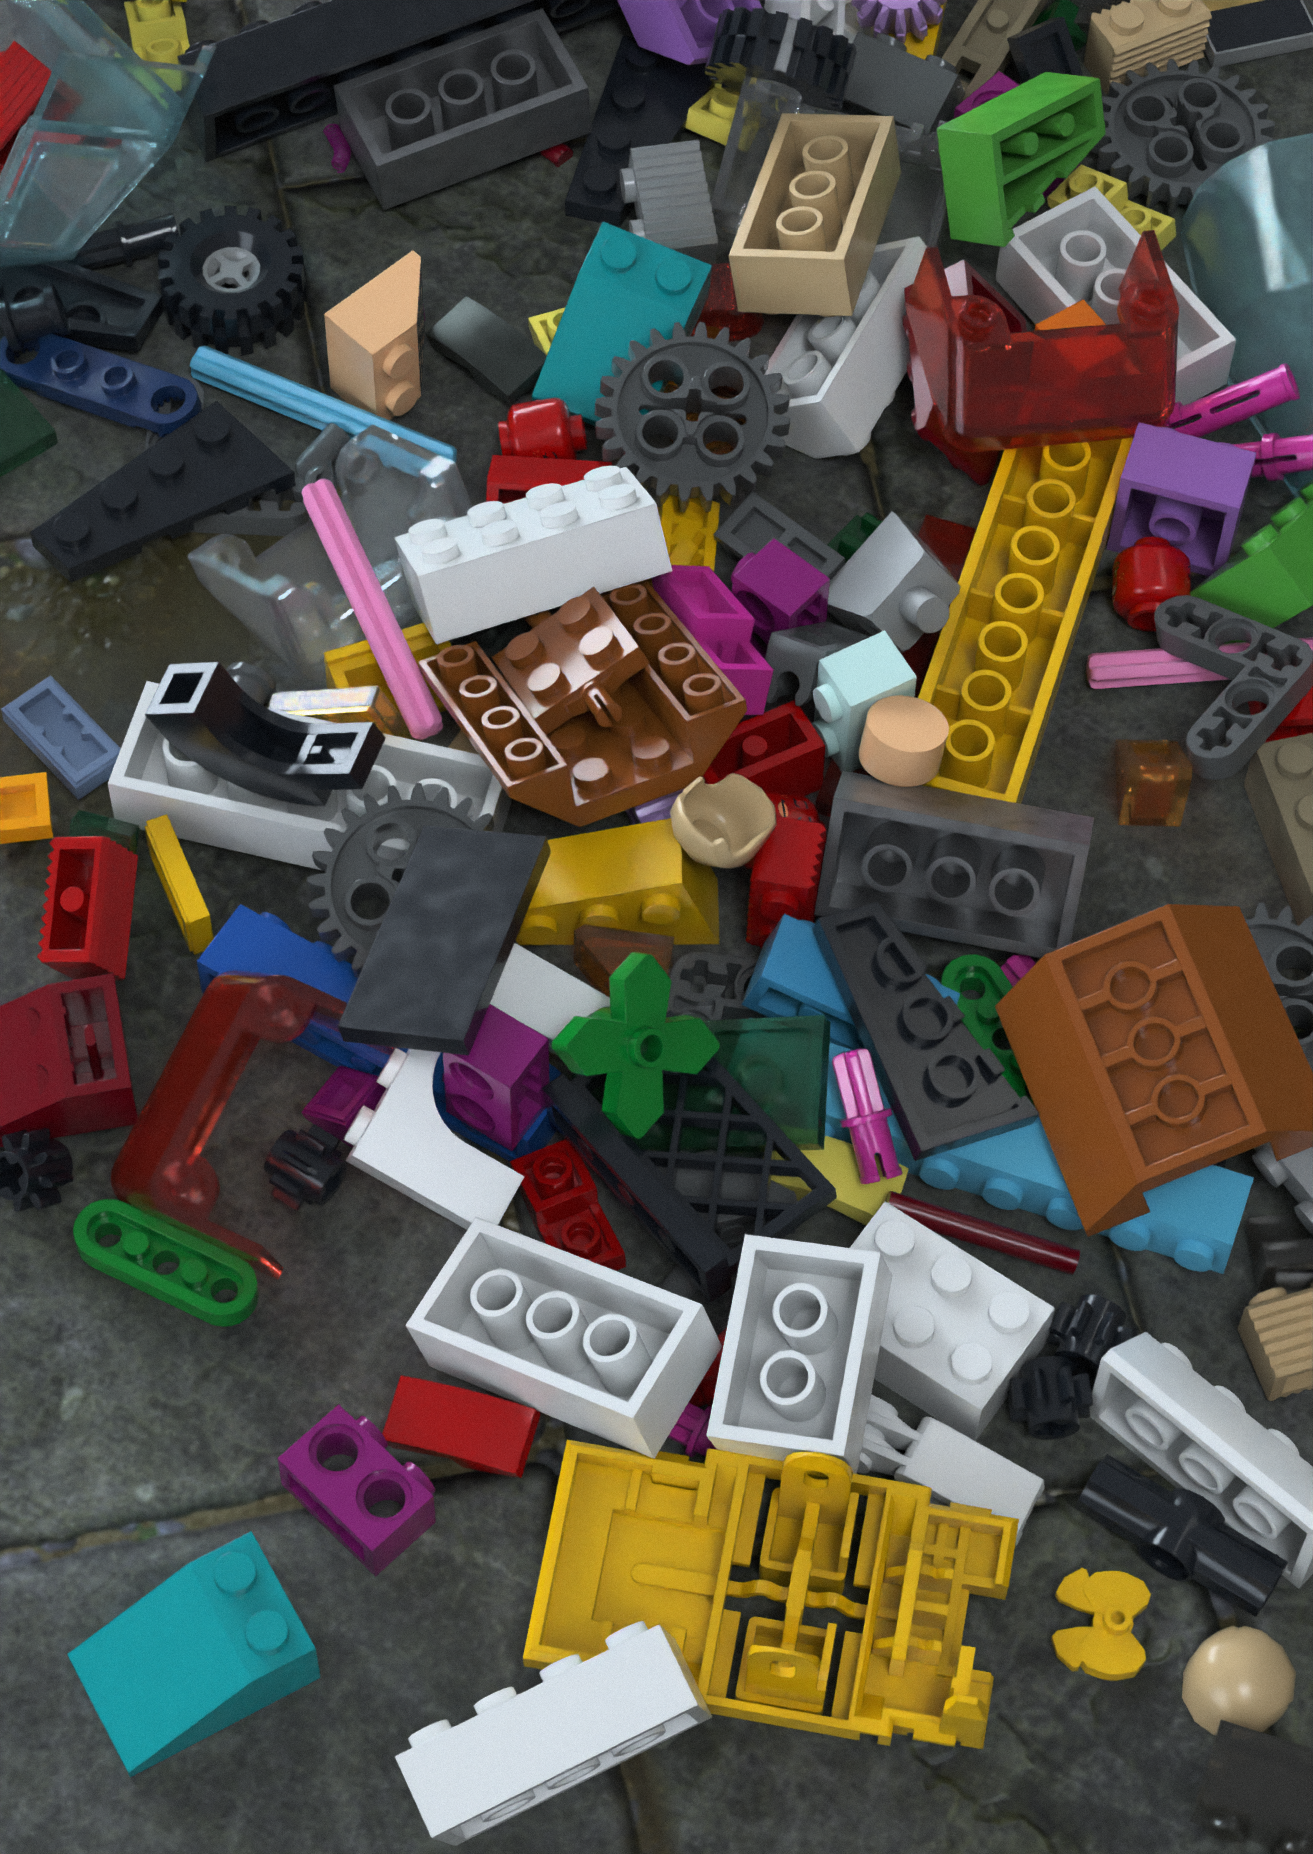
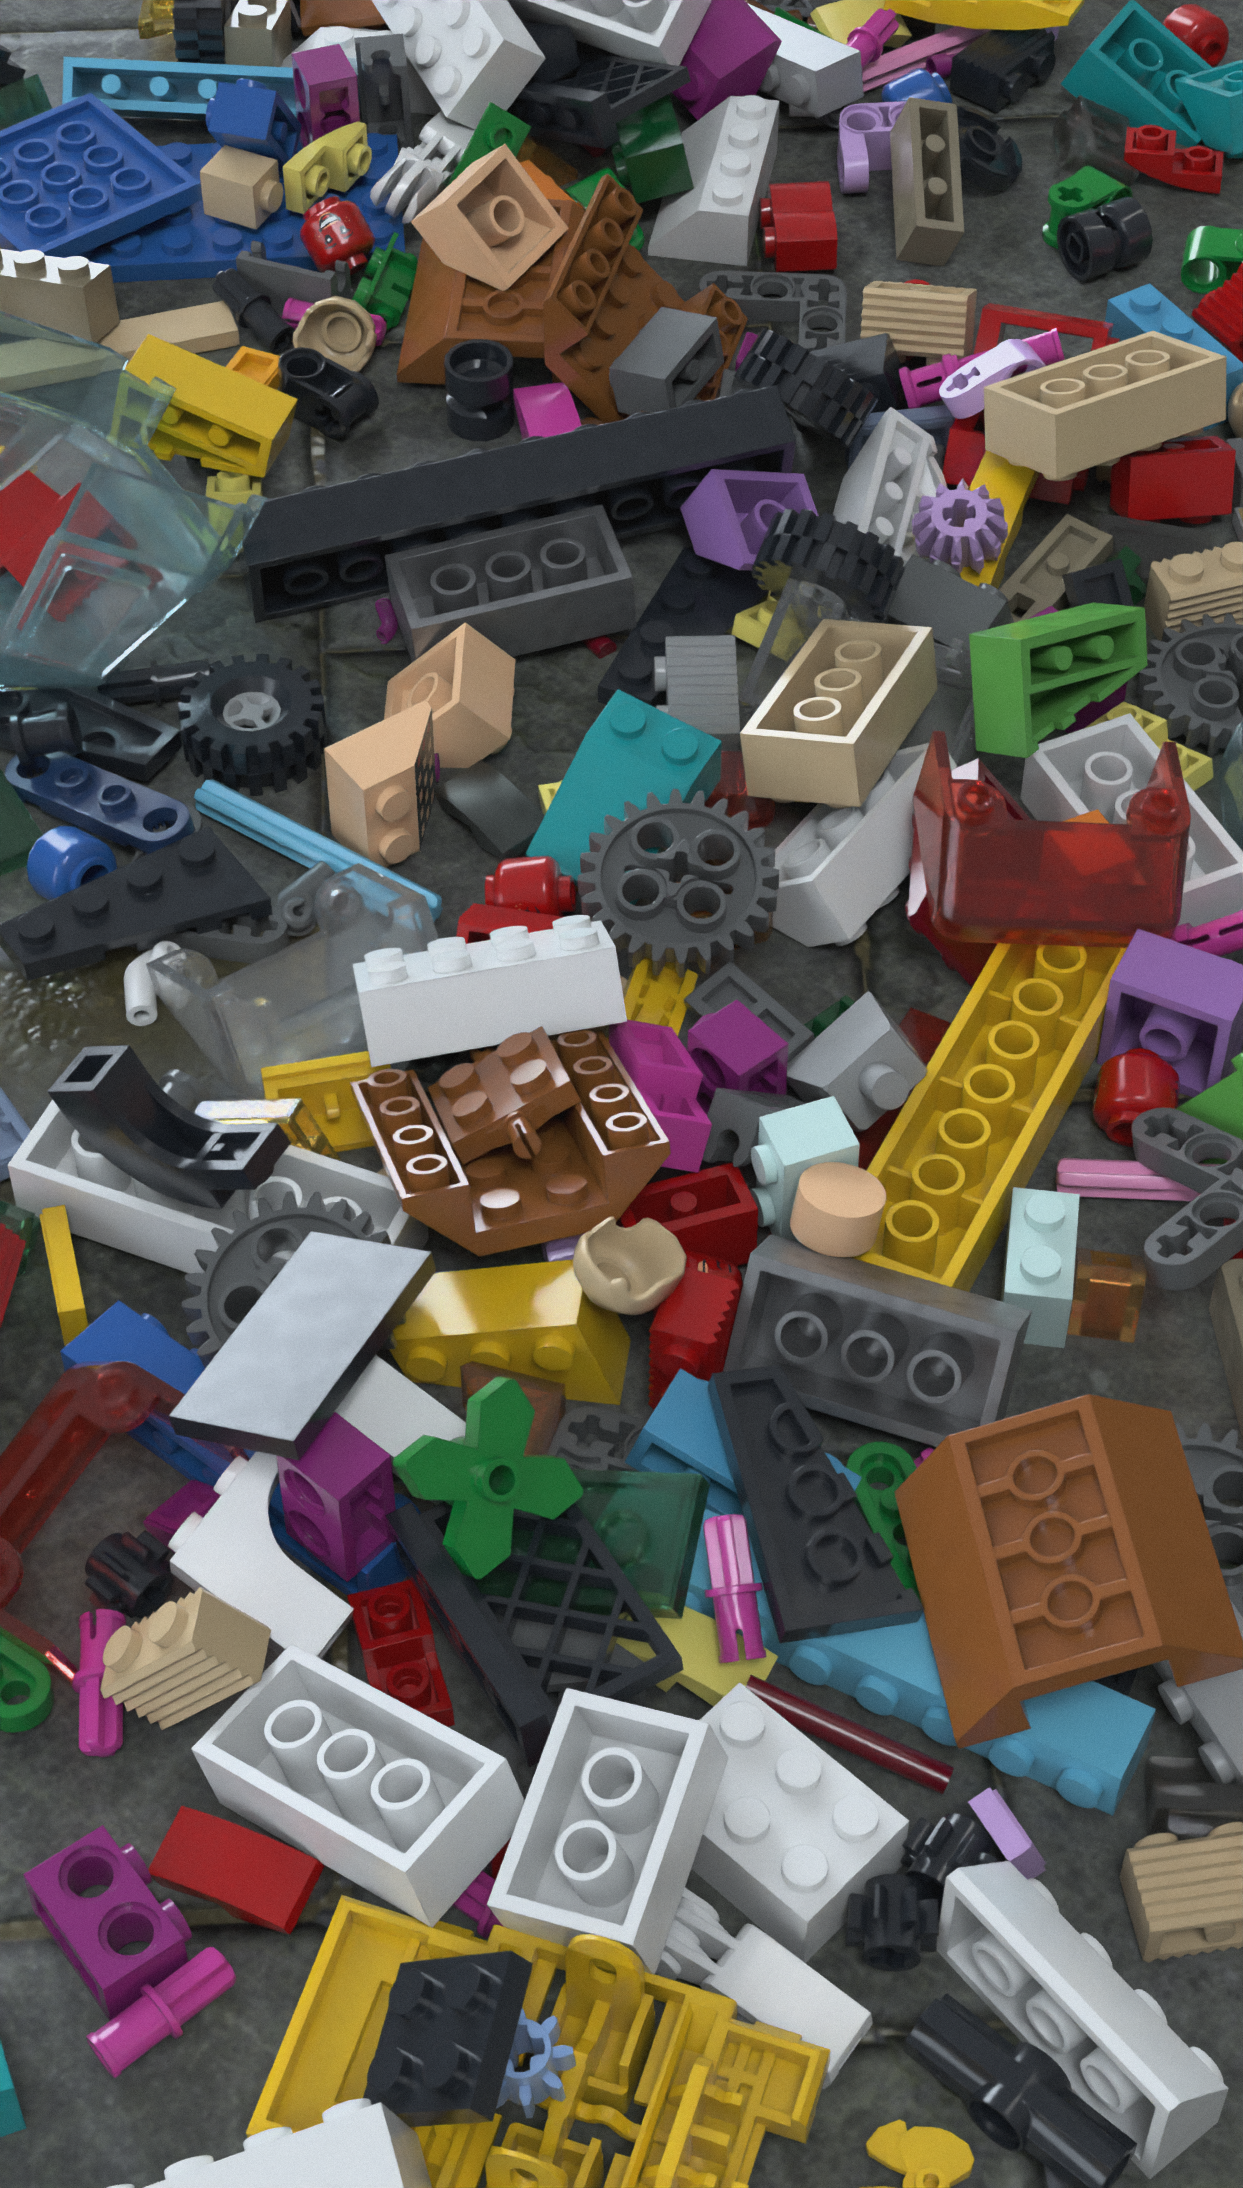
camera: 10 degrees right, 10 degrees down
(84, 454) = (66, 860): none -> blue head
(179, 571) = (138, 987): none -> white arm
(300, 1270) = (98, 1717): none -> dark pink axle
(372, 609) = (316, 1032): bright pink axle -> none
(380, 1242) = (184, 1658): none -> tan brick
(421, 1560) = (161, 2010): none -> dark pink axle
(439, 218) = (469, 693): none -> light nougat slope
(694, 1556) = (448, 2038): none -> black plate
(776, 1556) = (542, 2079): none -> light blue gear
(1088, 760) = (1041, 1261): none -> light aqua brick
(1138, 1304) = (1008, 1833): none -> lavender tile

